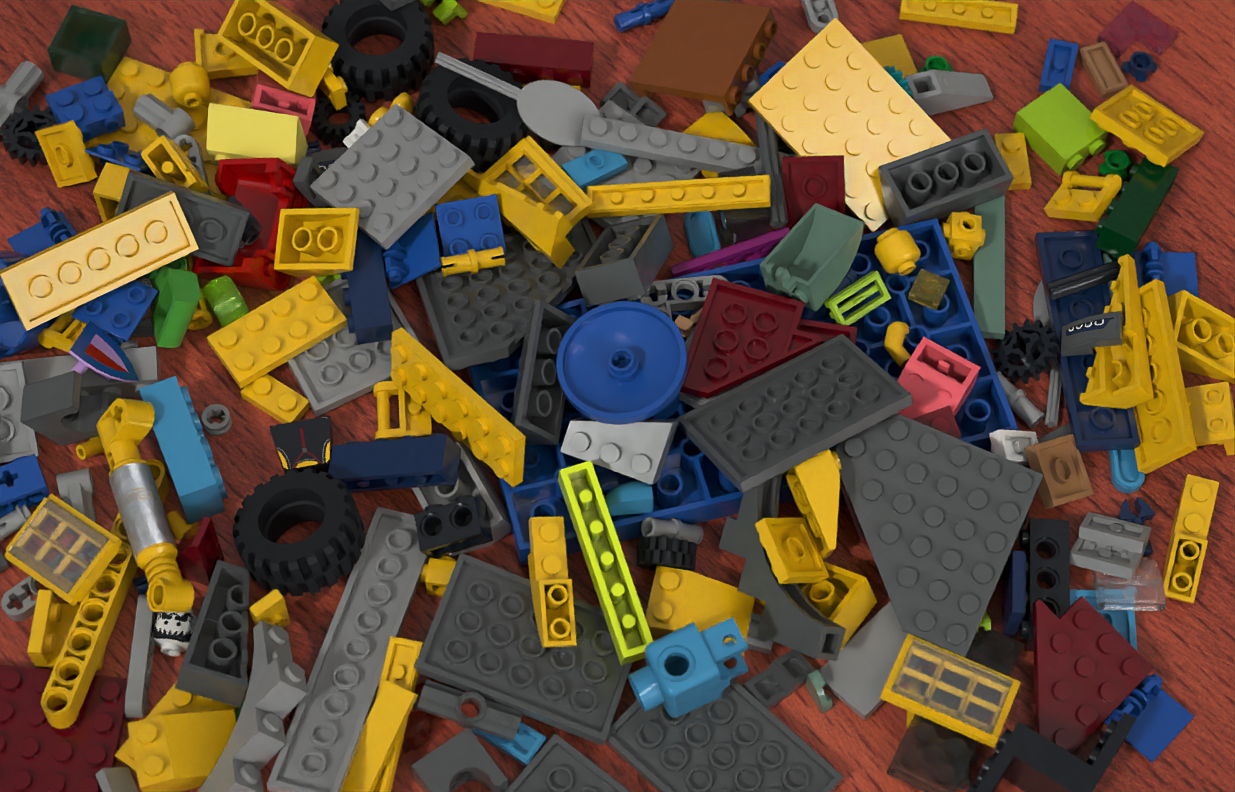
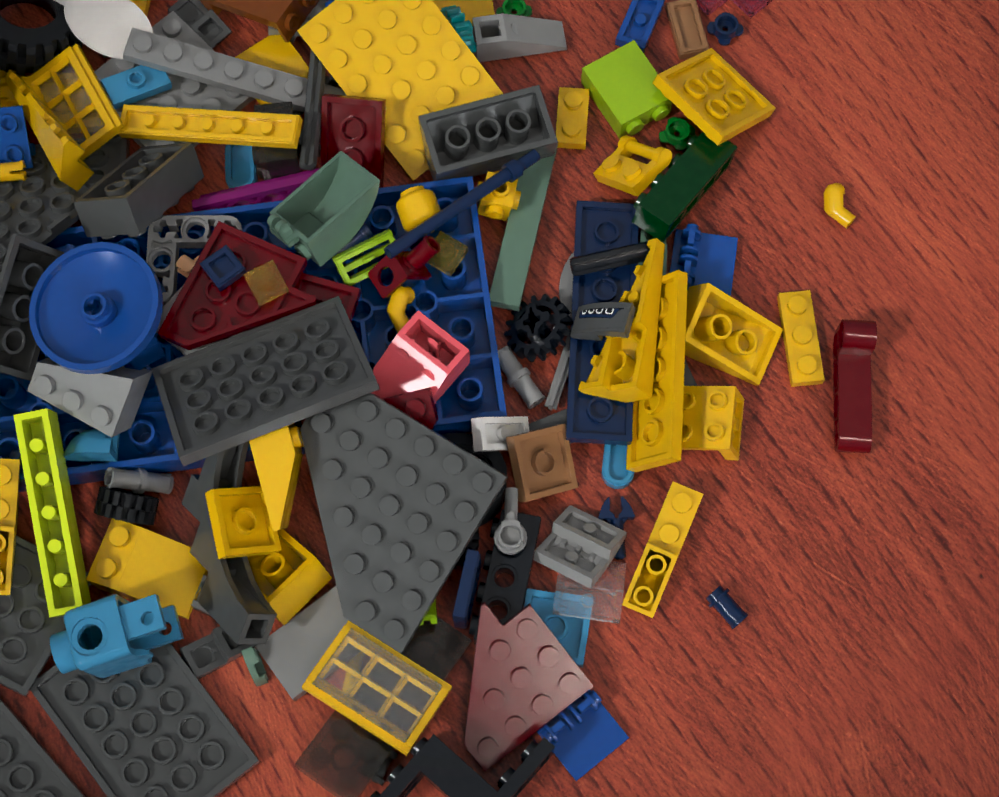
camera: 10 degrees right, 10 degrees up
(729, 318) = (223, 268): none -> dark blue tile
(773, 327) = (266, 283): none -> clear yellow plate
(897, 301) = (405, 266): none -> dark red bracket
(974, 209) = (509, 172): none -> dark blue bar
(1046, 538) = (510, 535): none -> light grey plate

